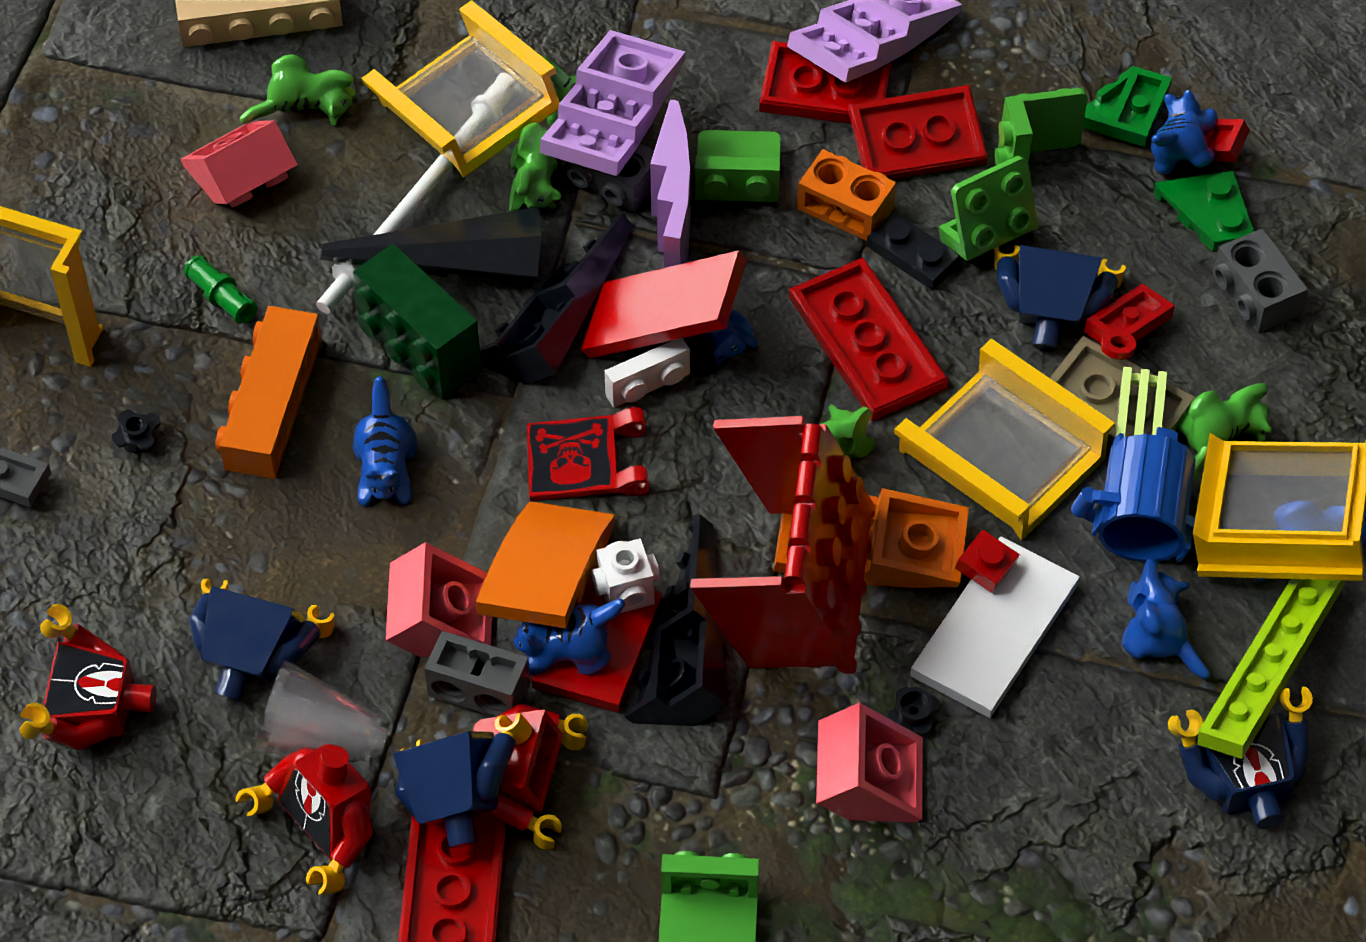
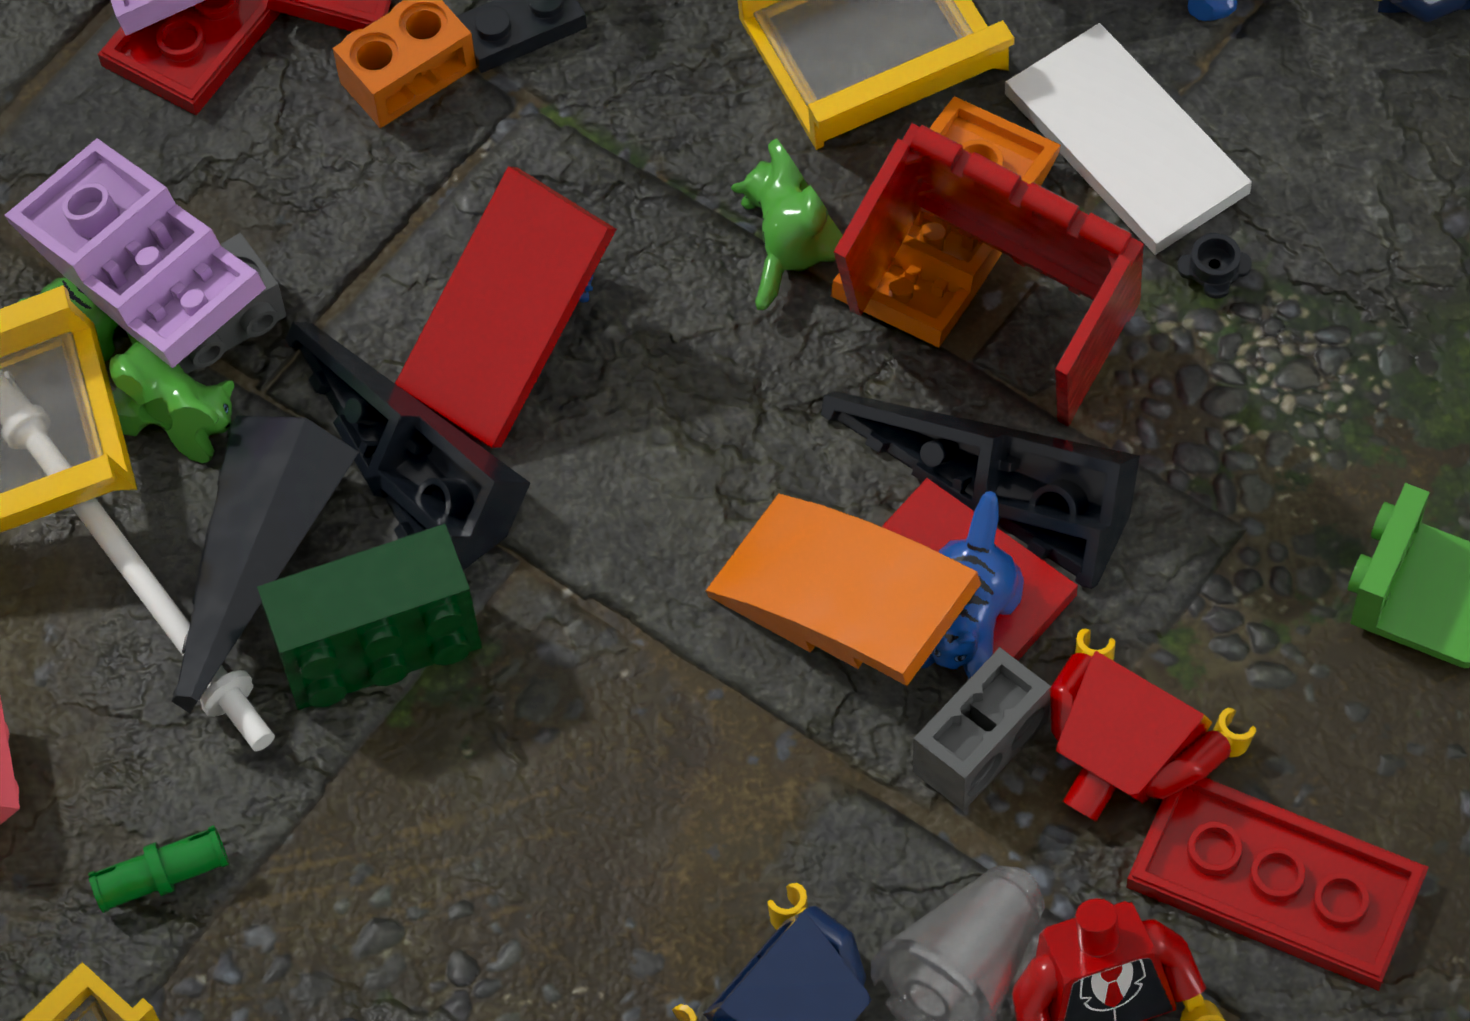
camera: 65 degrees left, 5 degrees up
(269, 392) = (379, 853): orange brick -> none
(383, 445) = (544, 736): blue animal -> none
(432, 595) = (834, 750): coral slope -> none
(458, 776) = (1149, 798): dark blue torso -> none
(580, 456) = (660, 511): flag -> none
(626, 574) = (909, 495): white brick -> none
(647, 372) = (581, 400): white plate -> none
(671, 187) = (319, 237): lavender slope -> none
(737, 166) = (288, 161): bright green bracket -> none
(868, 338) = (633, 119): red tile -> none
(869, 767) = (1284, 340): coral slope -> none
(987, 561) = (1046, 102): red plate -> none

